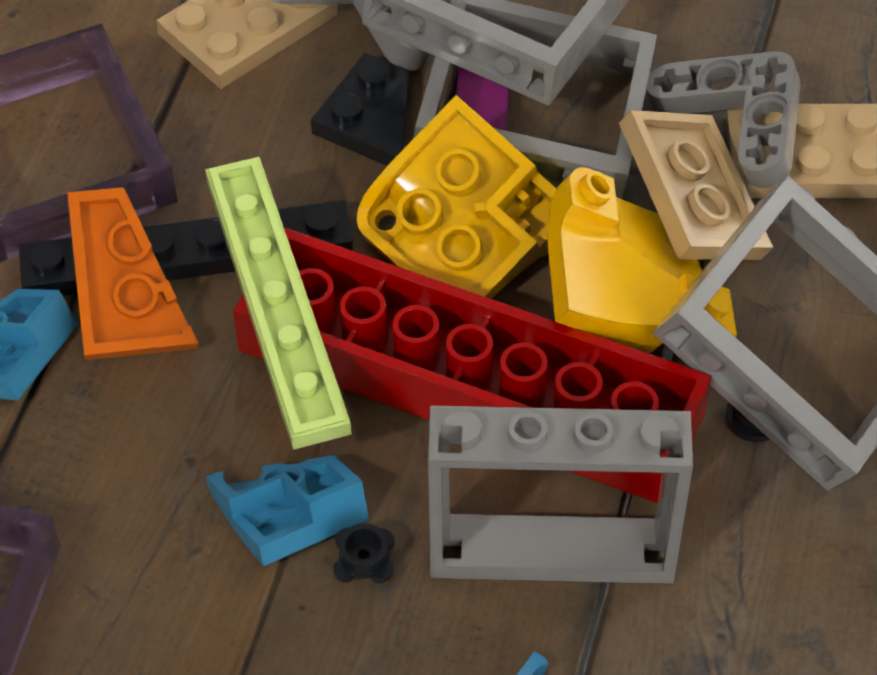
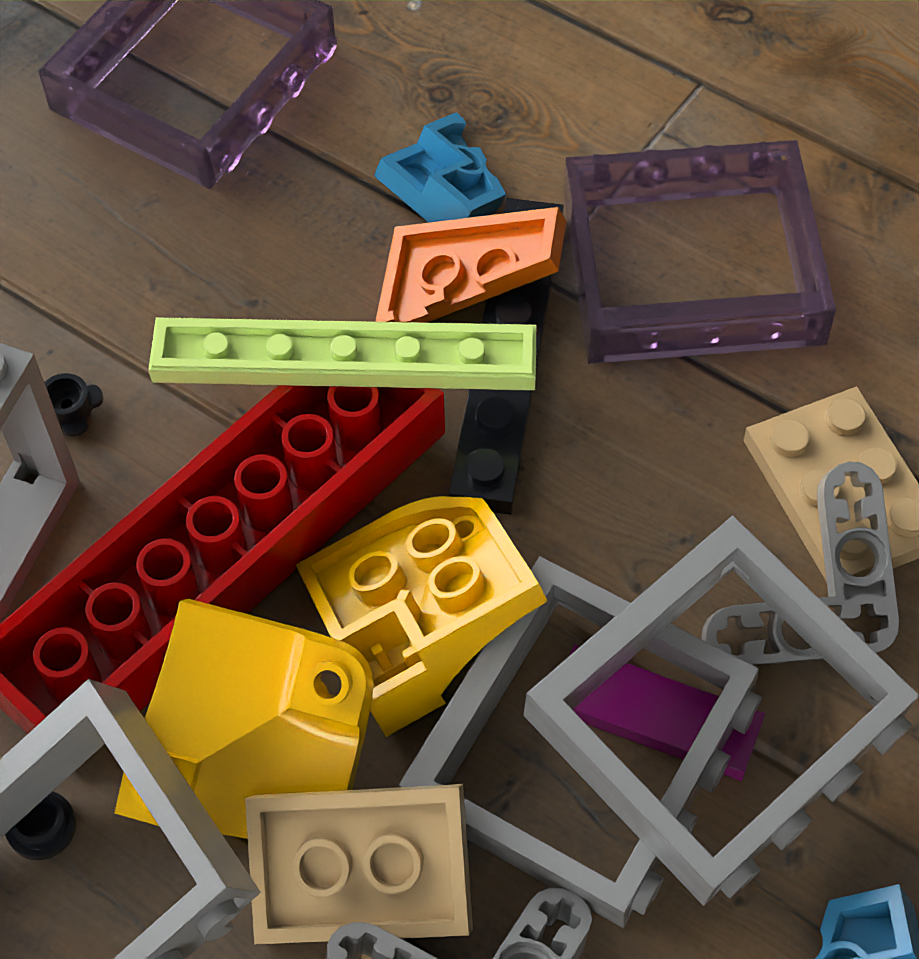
camera: 110 degrees right, 5 degrees up
(291, 505) = (125, 356): dark azure slope -> none
(367, 110) = (637, 555): black wing -> none

